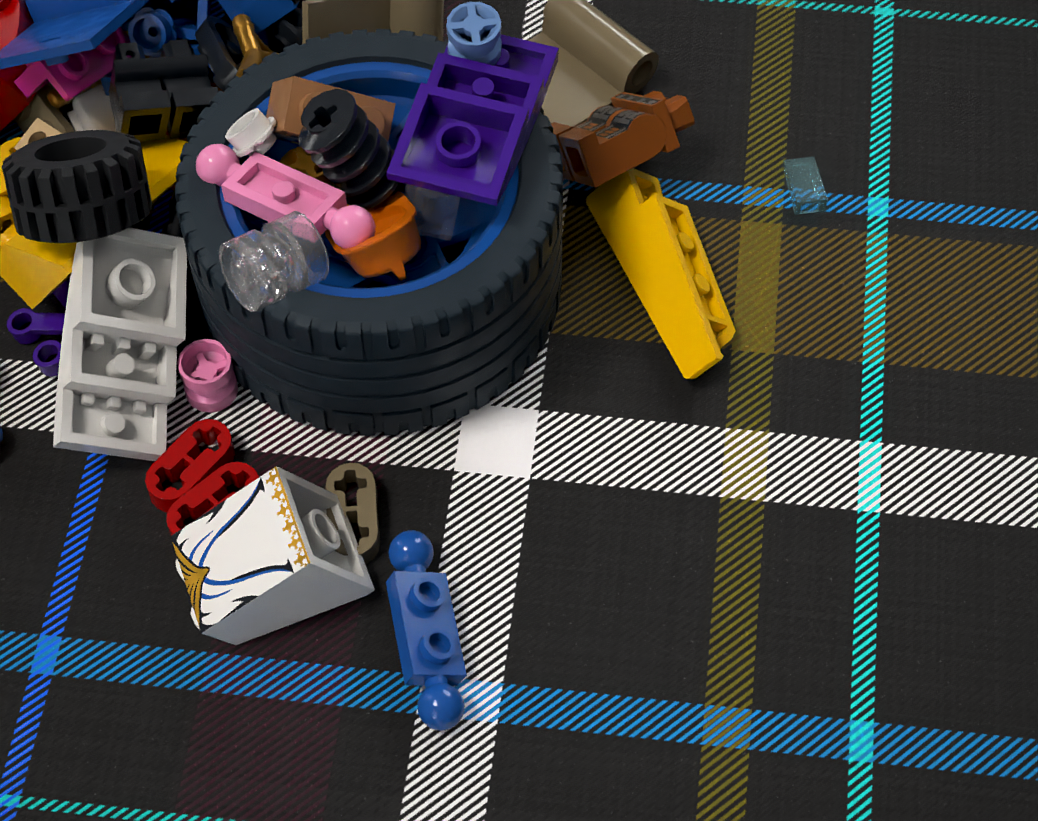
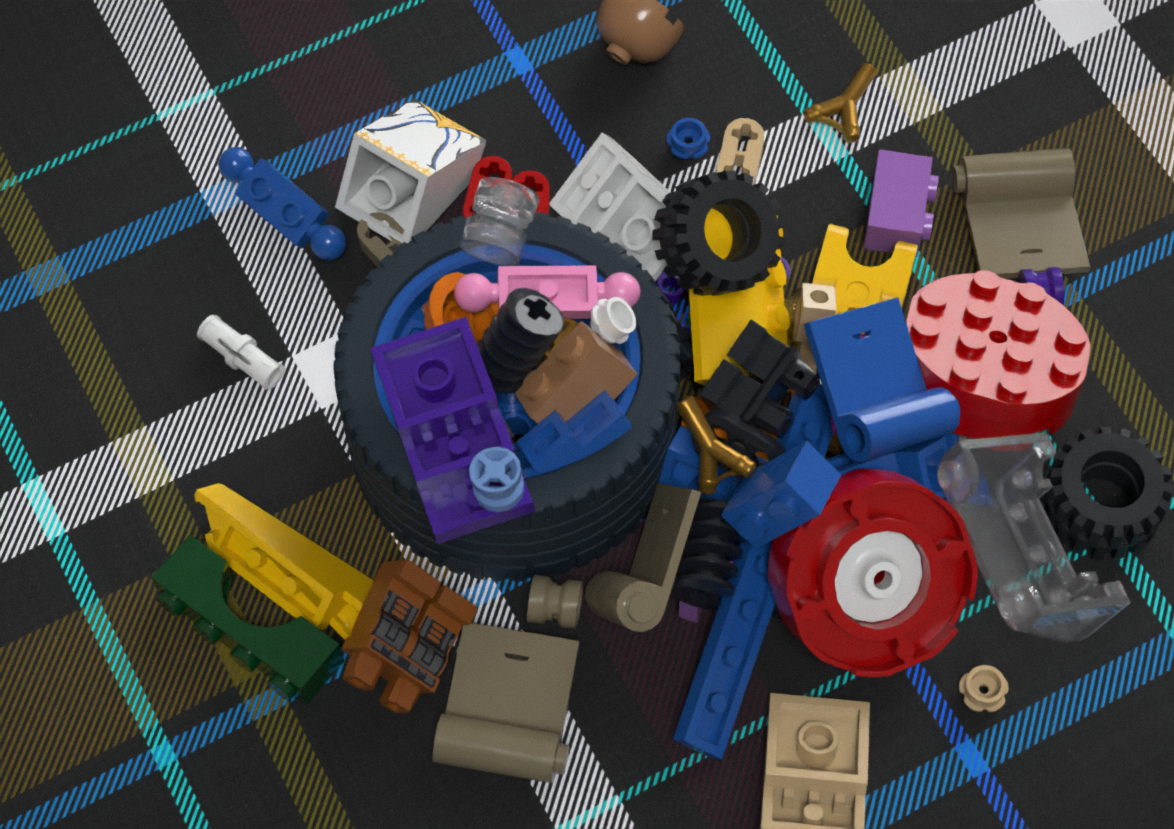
camera: 145 degrees right, 5 degrees up
(140, 30) = (827, 443): blue plate -> none
(369, 71) = (562, 442): none -> blue slope
(580, 497) = (241, 352): none -> white pin
(722, 197) = (292, 655): none -> dark green arch
(805, 185) = (235, 729): clear light blue piece -> none

